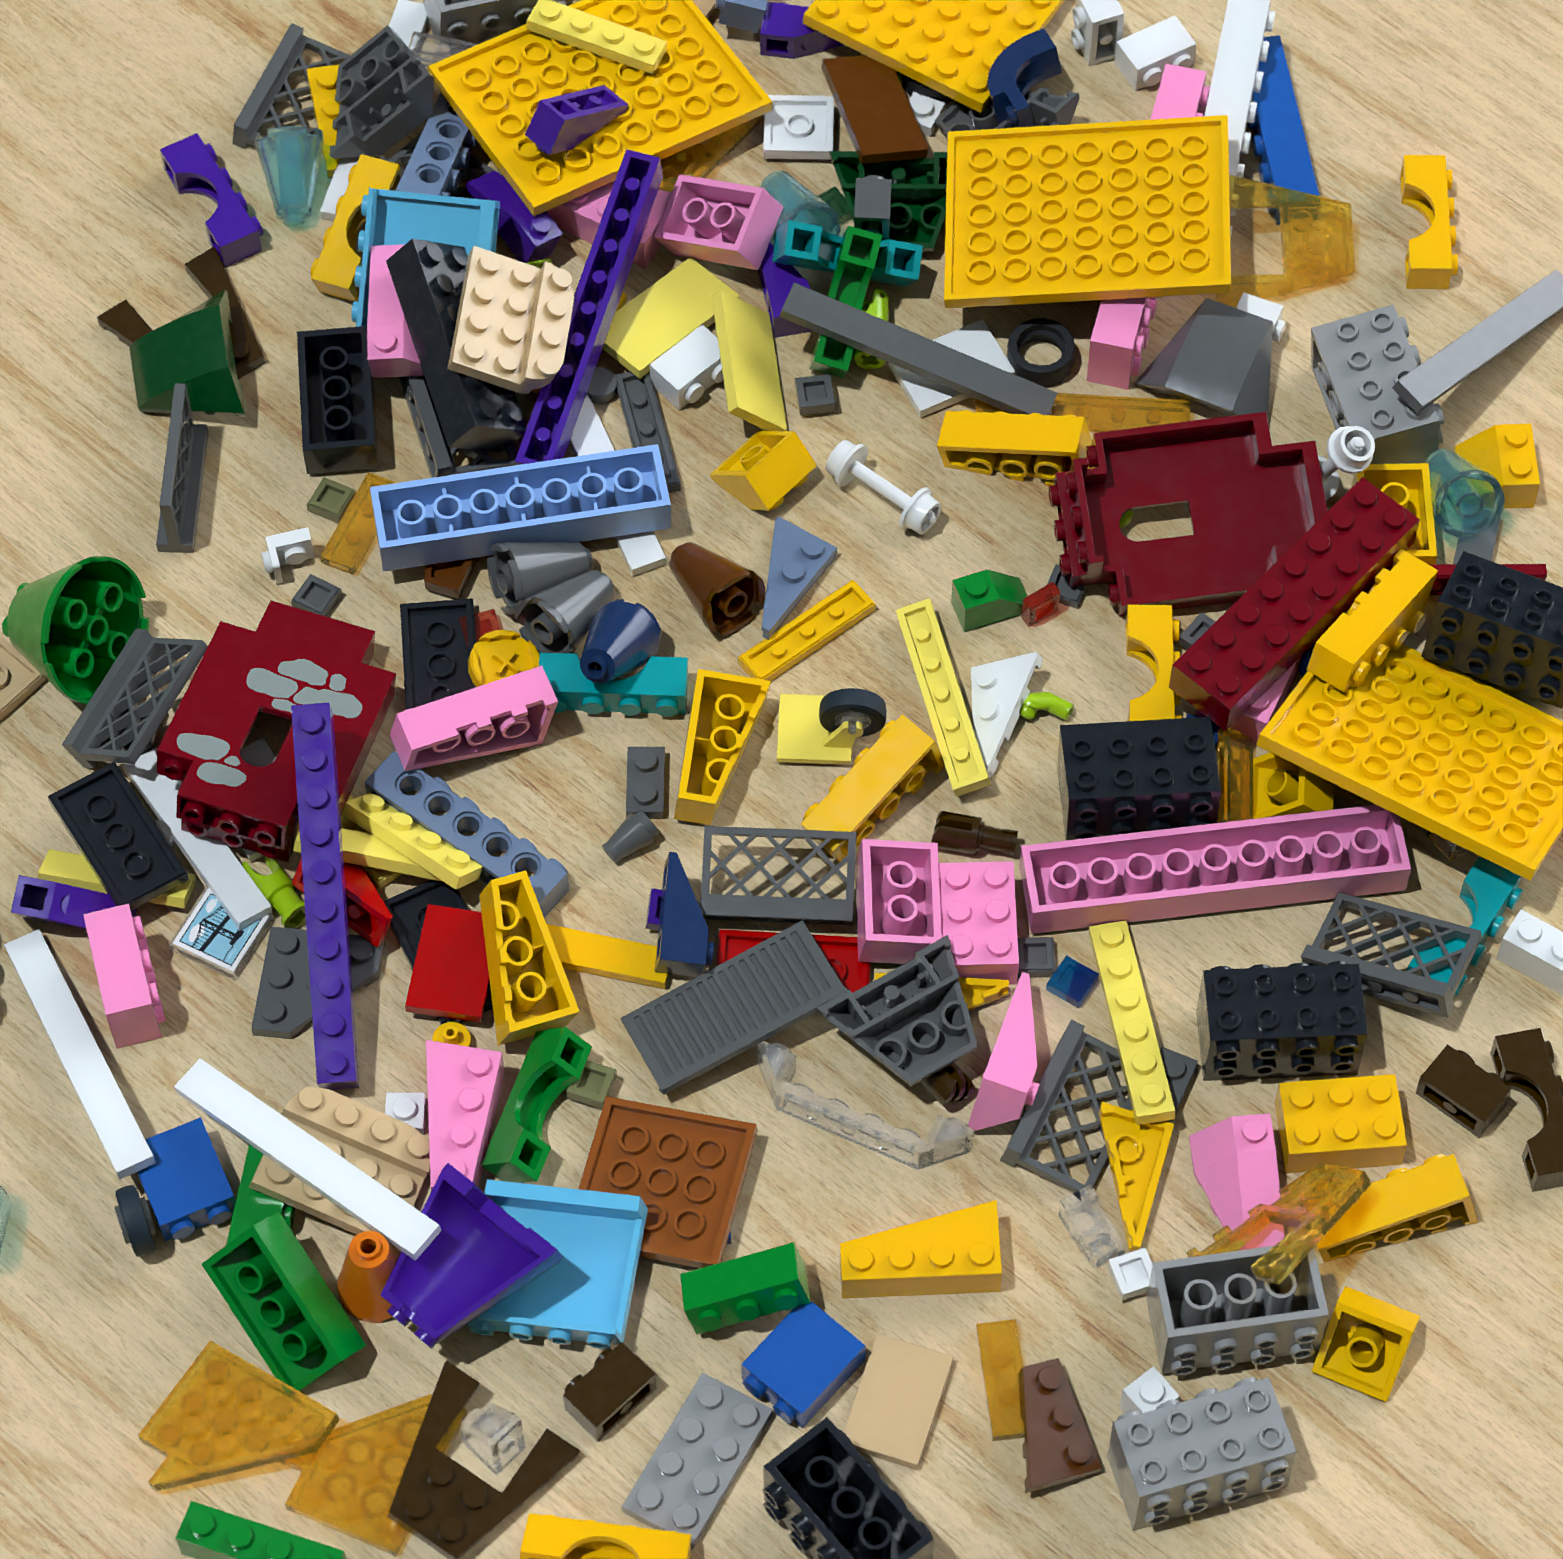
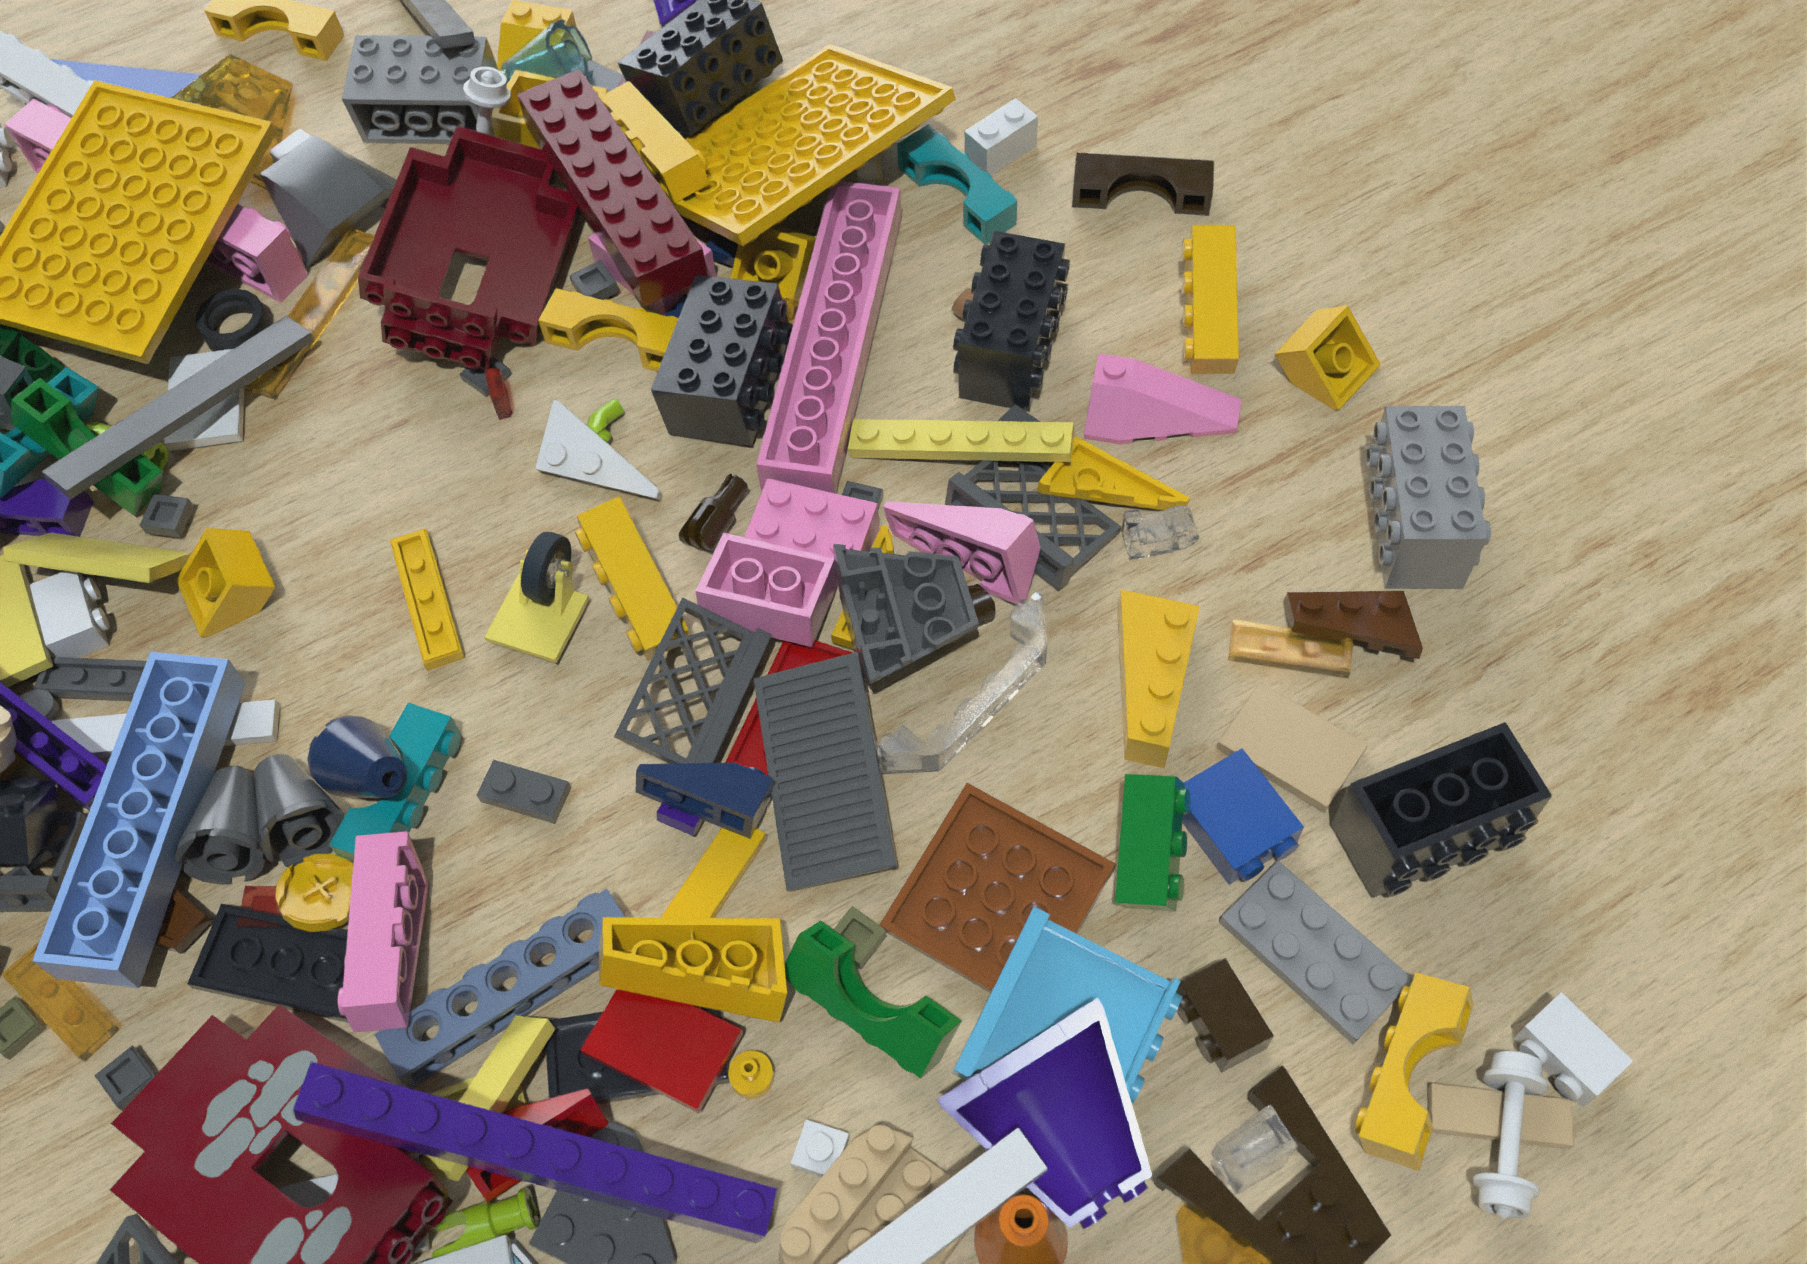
camera: 70 degrees left, 0 degrees up
(287, 548) = (47, 1091): white bracket -> none
(412, 840) = (498, 1042): light yellow plate -> none
(461, 1106) = (851, 1085): bright pink wedge -> none
(632, 835) = (582, 818): dark grey cone -> none
(717, 587) = (333, 658): reddish brown cone -> none
(717, 733) = (513, 706): yellow wedge -> none
(794, 567) = (349, 585): sand blue wing -> none
(848, 462) = (260, 506): white piece -> none
(943, 697) = (554, 495): light yellow plate -> none
(986, 598) = (470, 437): green slope -> none
(1012, 443) = (323, 360): yellow wedge -> none
(1072, 981) = (896, 480): tile -> none
(1131, 1273) = (1213, 511): white plate -> none
(1147, 1392) = (1349, 531): white brick -> none
(1220, 1315) = (1288, 428): light grey brick -> none
(1309, 1204) = (1201, 340): clear yellow wing -> none
(1340, 1123) = (1113, 311): yellow brick -> none
(1388, 983) = (1015, 219): dark grey fence -> none
(1463, 1090) = (1109, 226): dark brown brick -> none

